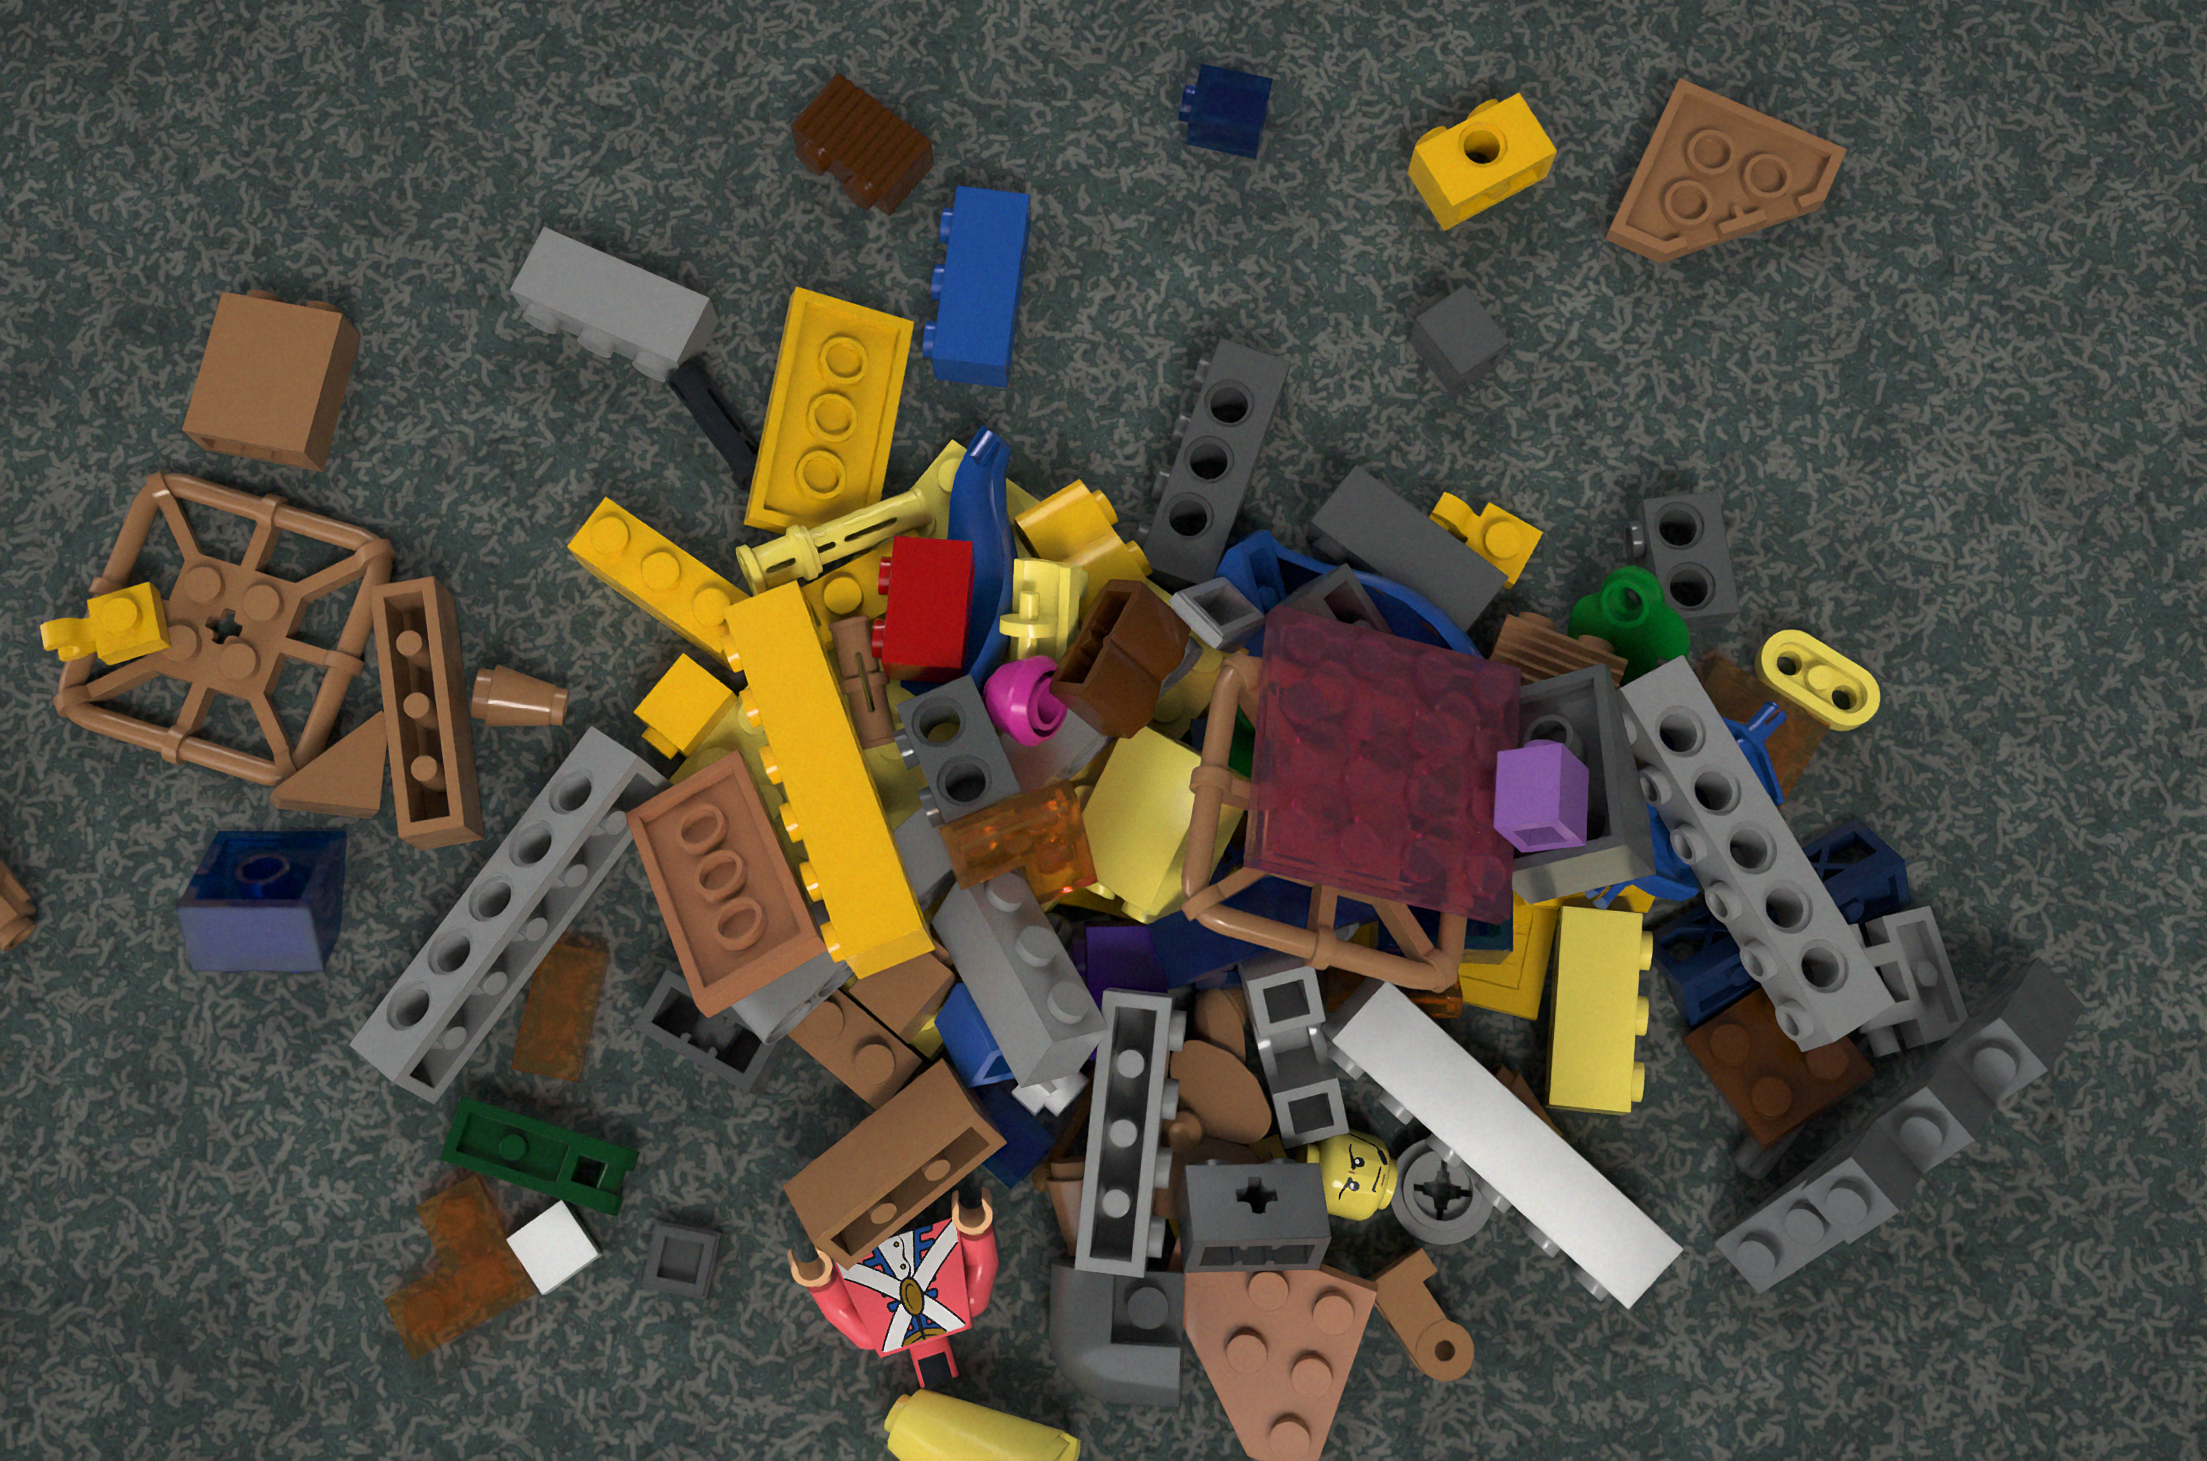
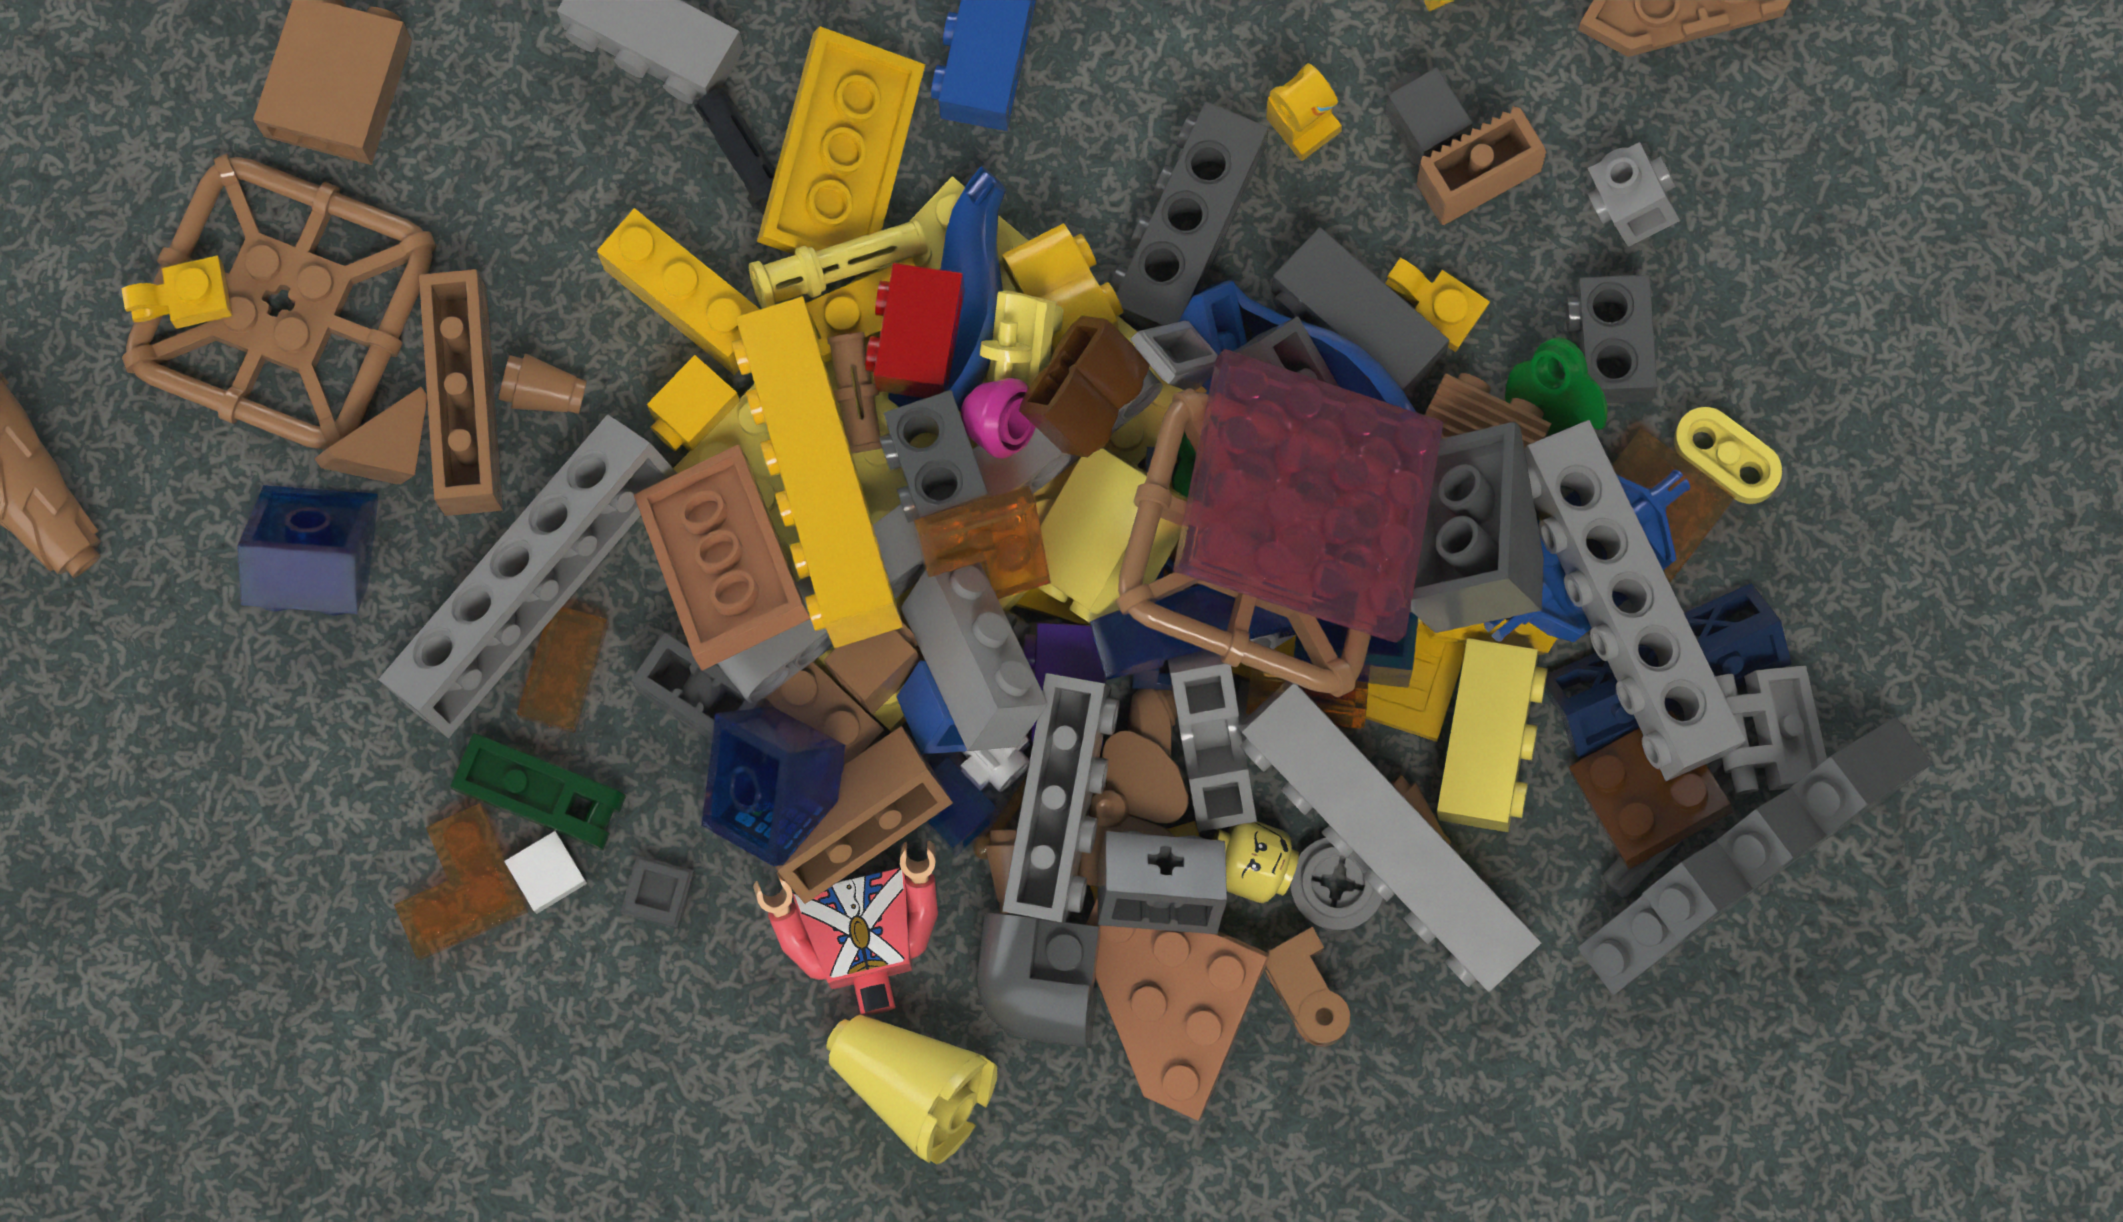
camera: 10 degrees right, 0 degrees up
(797, 1135) = (769, 781): none -> clear blue slope
(1323, 341) = (1304, 112): none -> yellow leg
(1521, 386) = (1480, 165): none -> medium nougat brick
(1541, 797) = (1442, 533): medium lavender brick -> none
(1687, 404) = (1633, 193): none -> light grey brick

